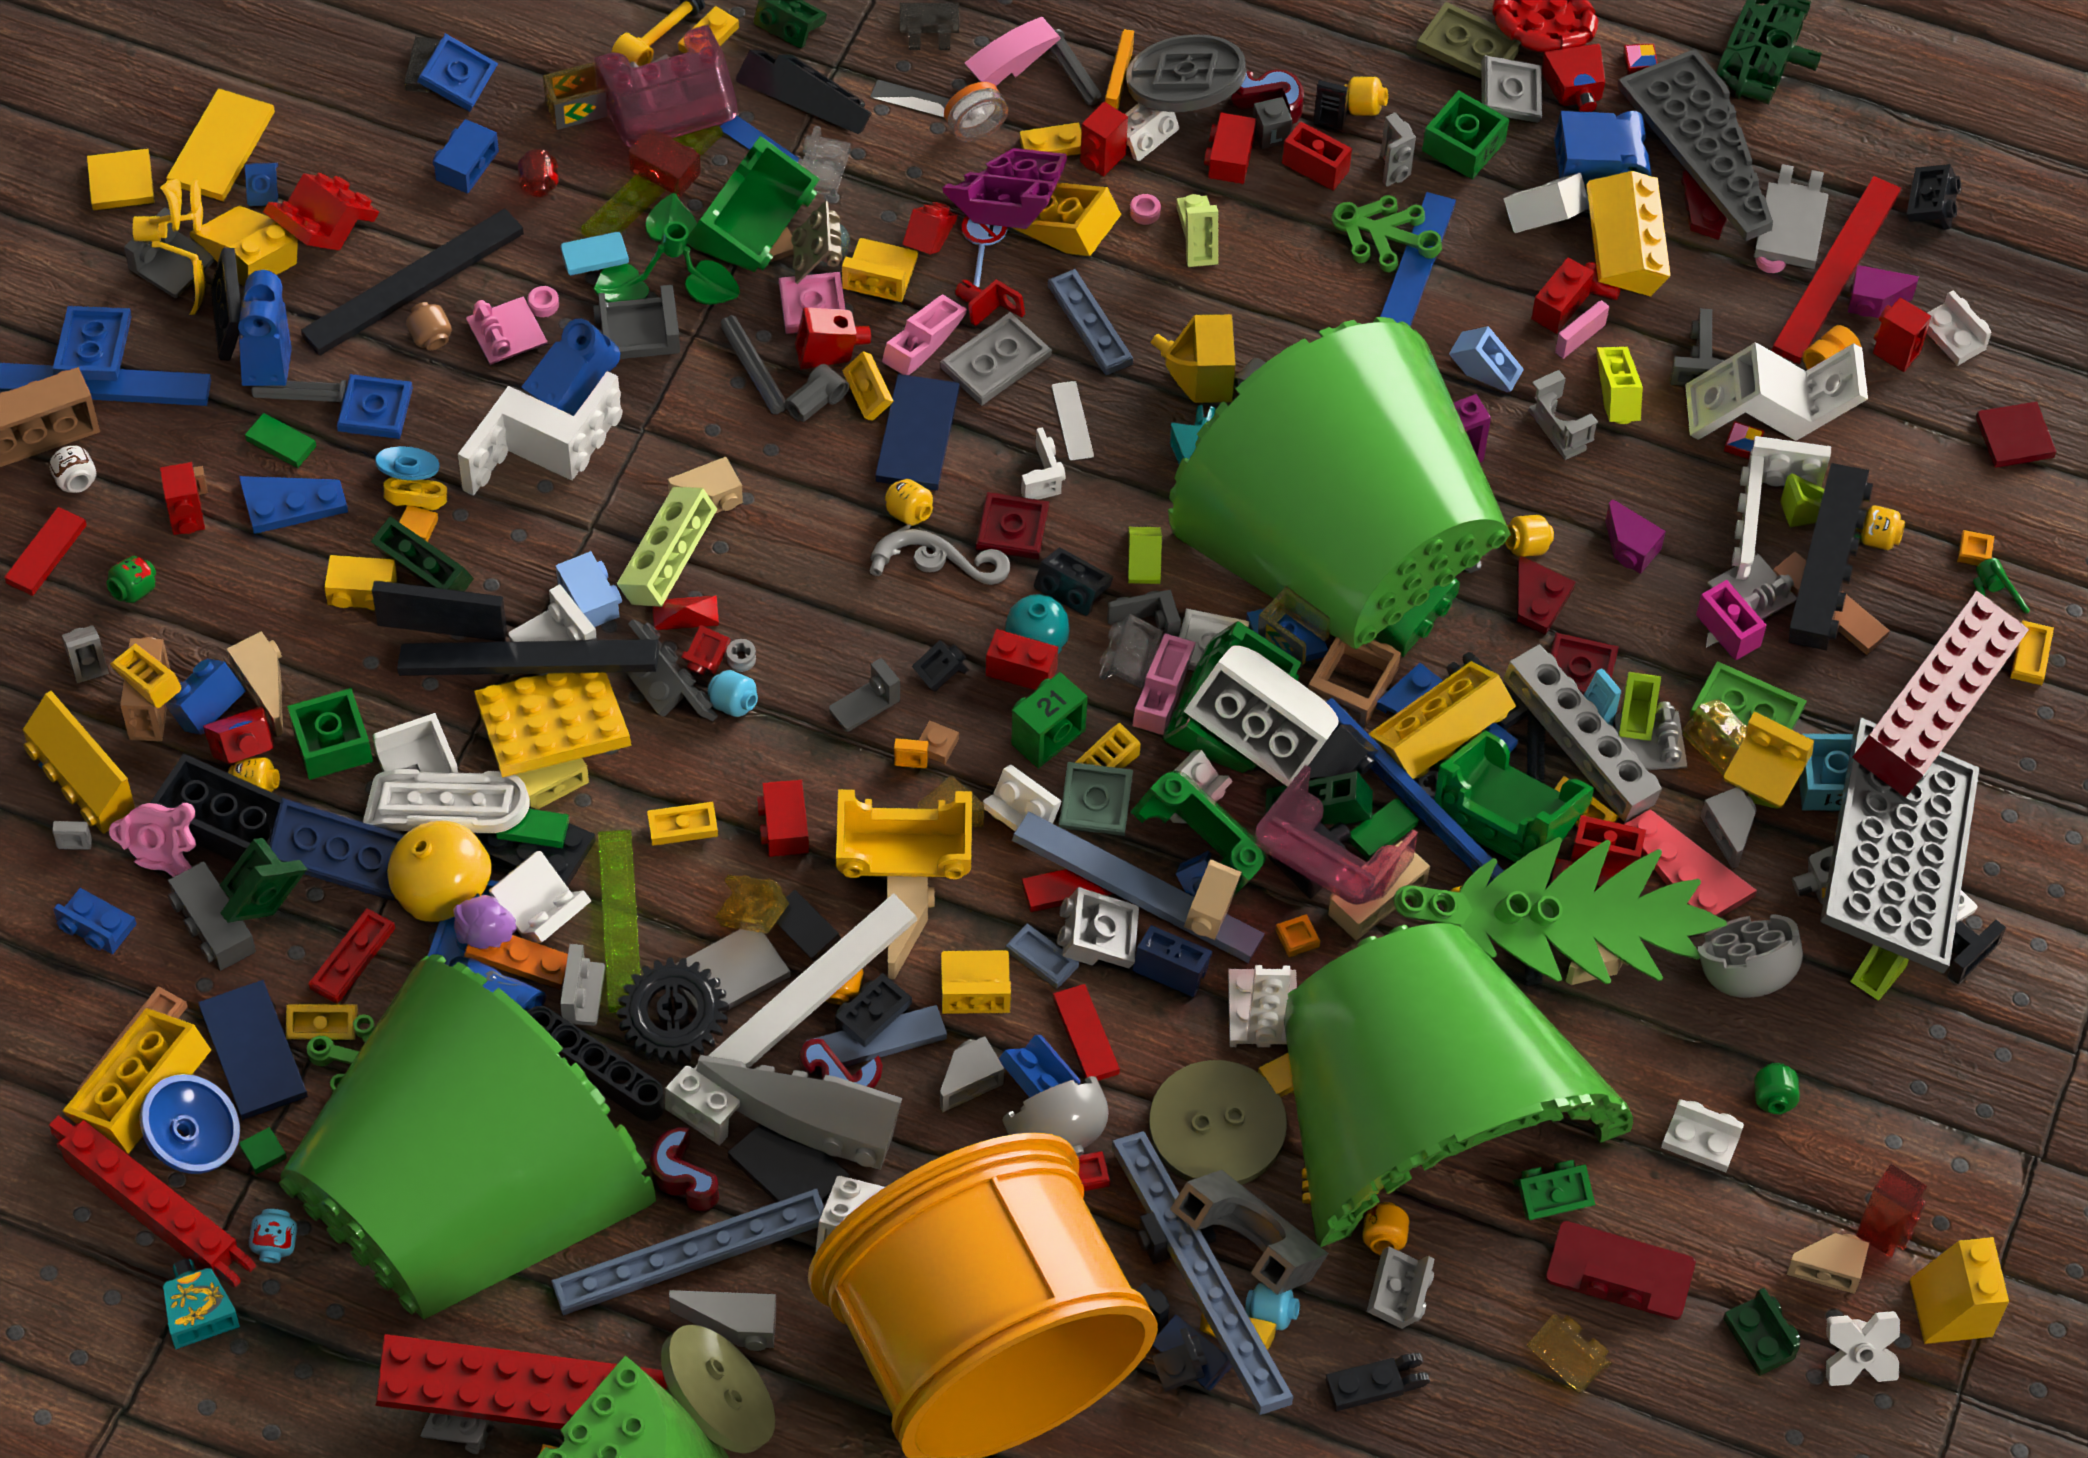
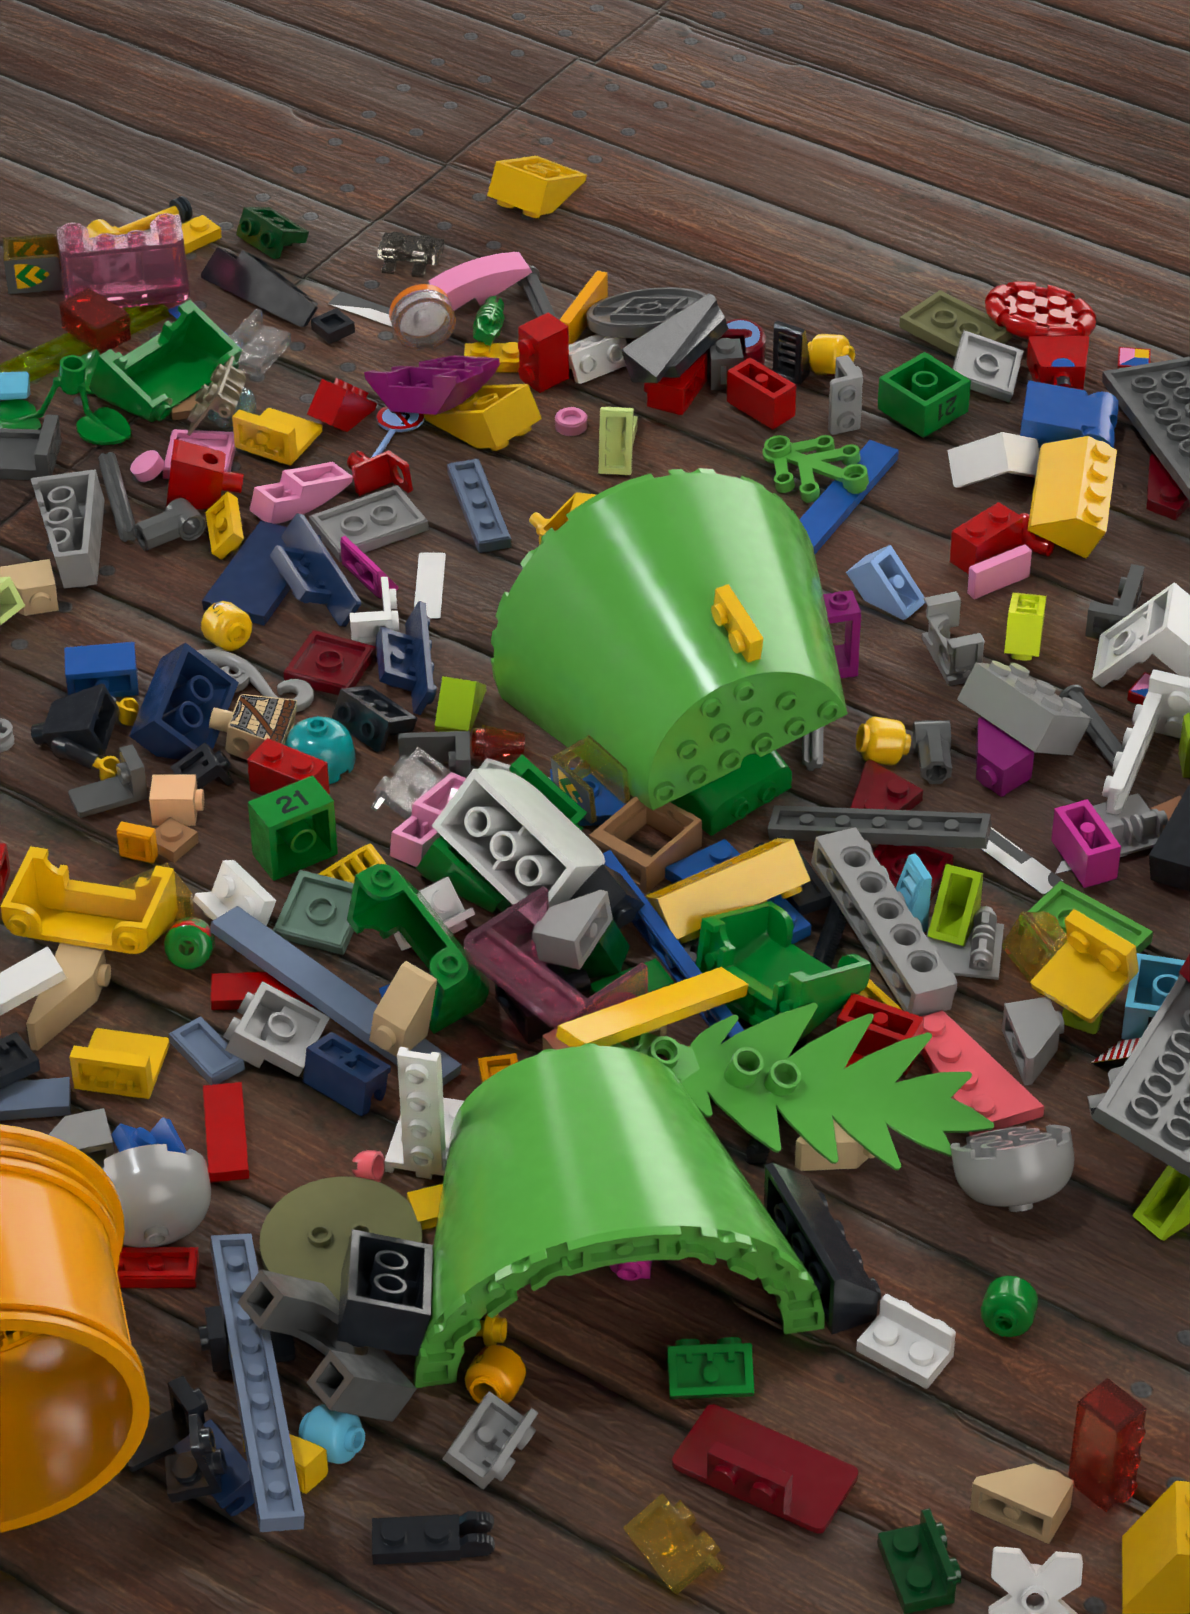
camera: 15 degrees right, 15 degrees down
(724, 403) = (73, 520): none -> light grey wedge
(770, 325) = (147, 466): none -> bright pink tile
(813, 571) = (102, 664): none -> blue brick
(820, 639) = (82, 725): none -> black torso
(888, 128) = (333, 326): none -> black plate
(903, 600) = (180, 704): none -> dark blue slope
(929, 701) = (175, 798): none -> light nougat brick
(971, 430) = (313, 571): none -> dark blue bracket
(975, 611) = (253, 722): none -> torso
(996, 853) = (199, 935): none -> green head
(1011, 414) = (363, 567): none -> dark pink slope
(1037, 103) = (489, 321): none -> green hinge
(1085, 512) = (406, 658): none -> dark blue bracket
(1192, 591) = (496, 742): none -> clear red cone
(1220, 1047) = (370, 1165): none -> coral hinge
(1231, 116) = (676, 342): none -> wedge
(1284, 1176) = (385, 1293): none -> black brick
(1334, 798) = (572, 929): none -> light grey slope
(1426, 494) = (743, 633): none -> yellow plate
(1427, 869) = (653, 1009): none -> yellow tile
(1552, 631) = (883, 826): none -> dark grey plate
(1572, 530) = (933, 747): none -> dark grey piece
(1617, 1064) = (821, 1245): none -> black slope
(1646, 486) = (1025, 707): none -> light grey brick
(1668, 638) = (1020, 863): none -> white sticker
(1704, 487) = (1097, 729): none -> dark grey axle
(1812, 824) = (1120, 1050): none -> sticker

